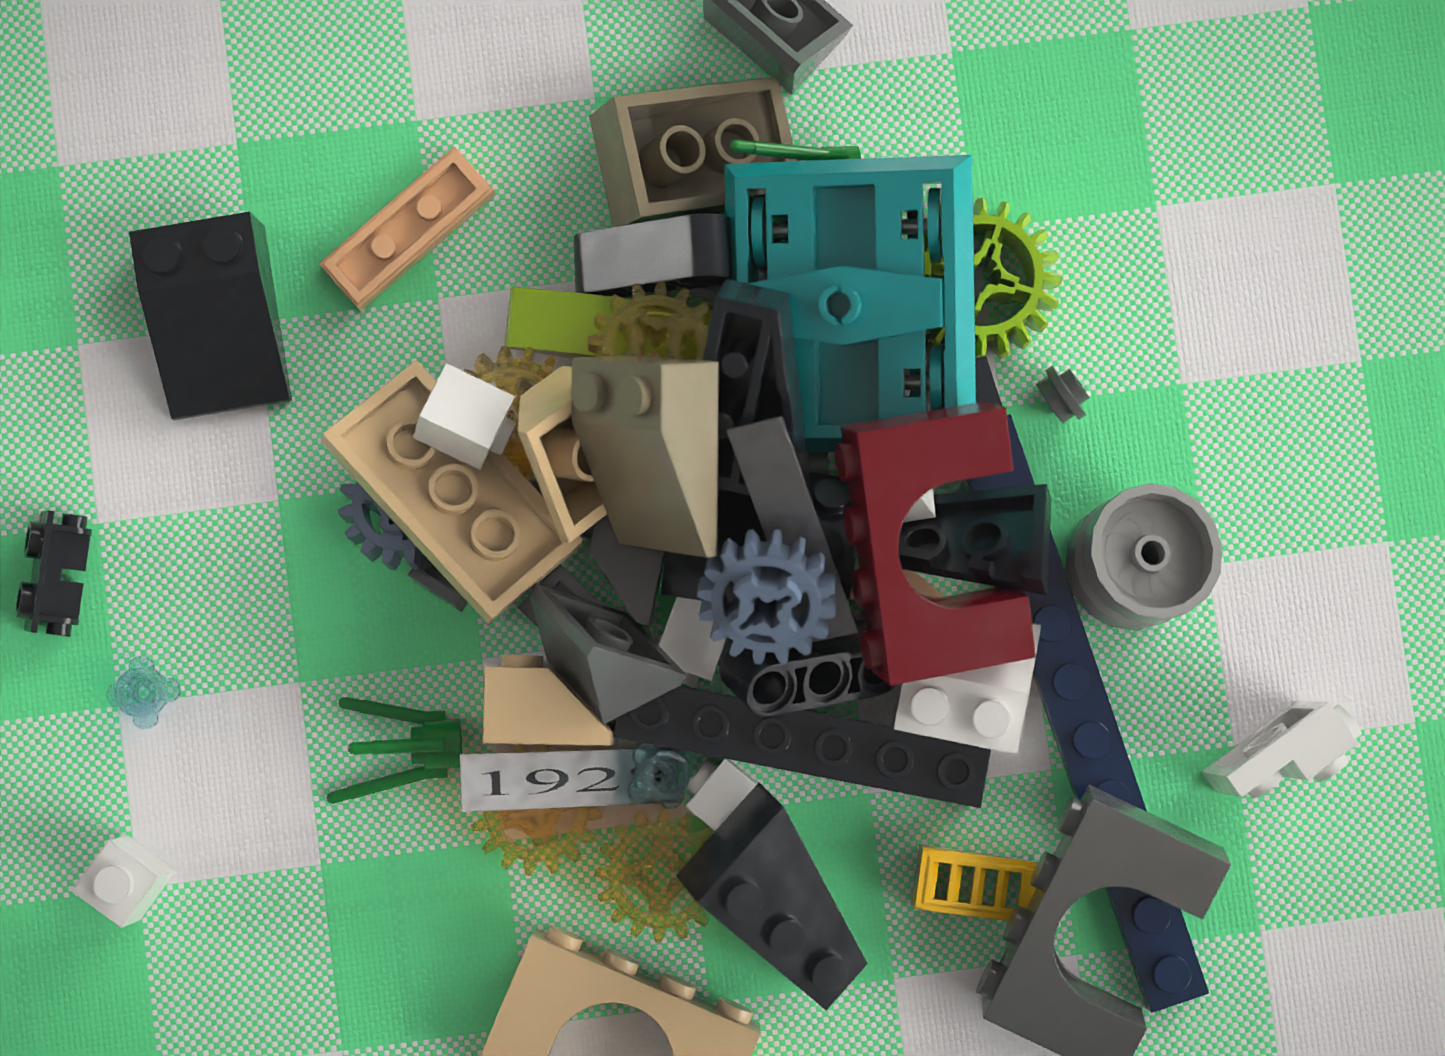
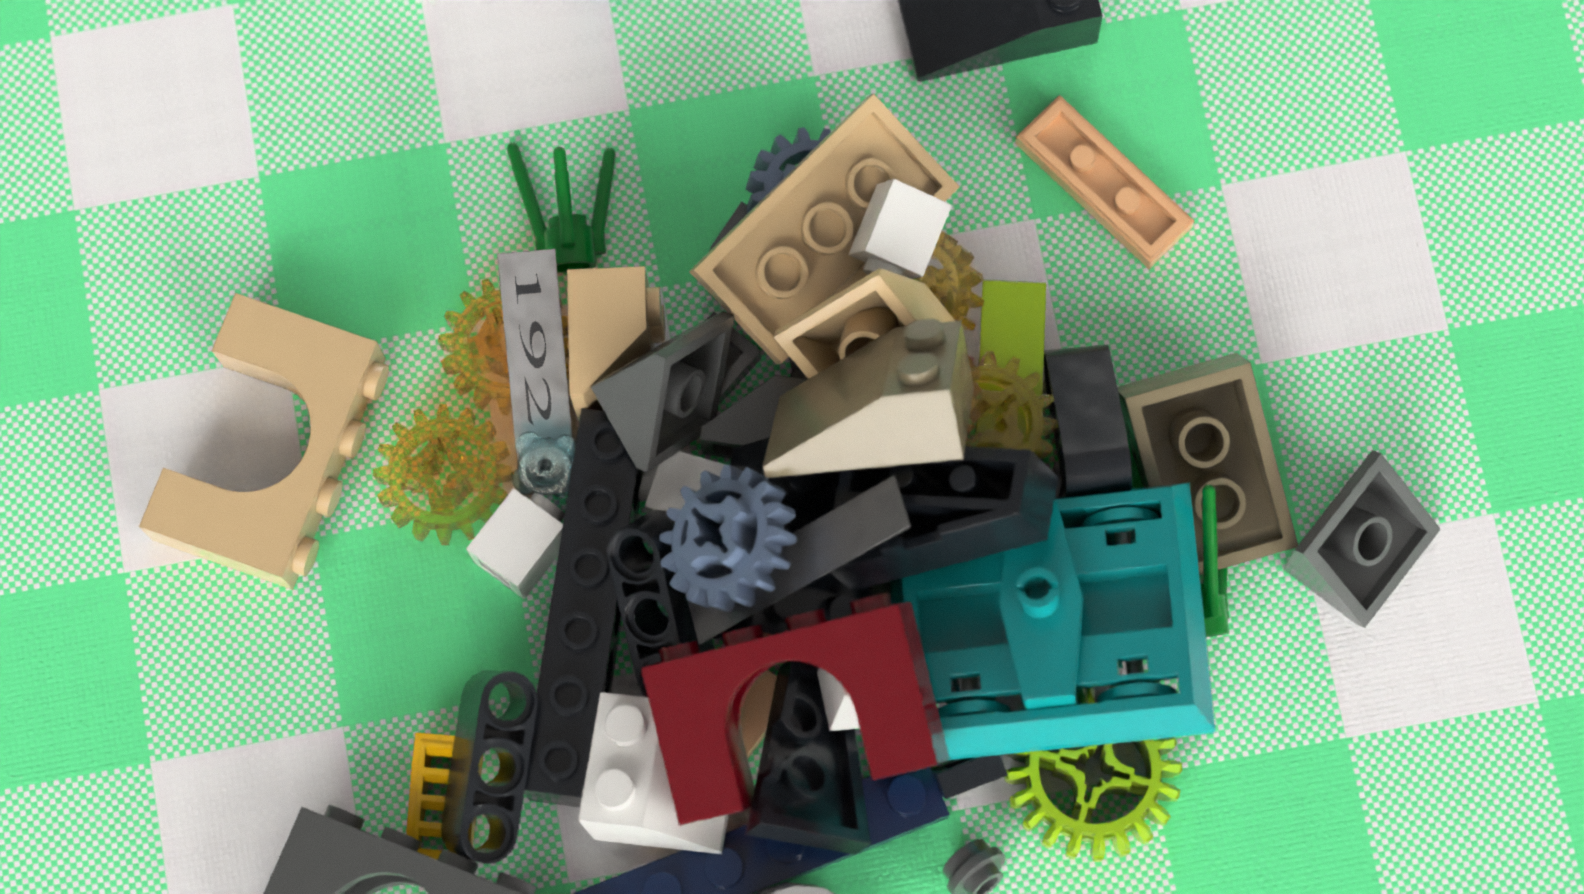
camera: 90 degrees right, 10 degrees down
(773, 898) = (415, 579): black wedge -> none
(980, 825) = (503, 796): none -> black beam

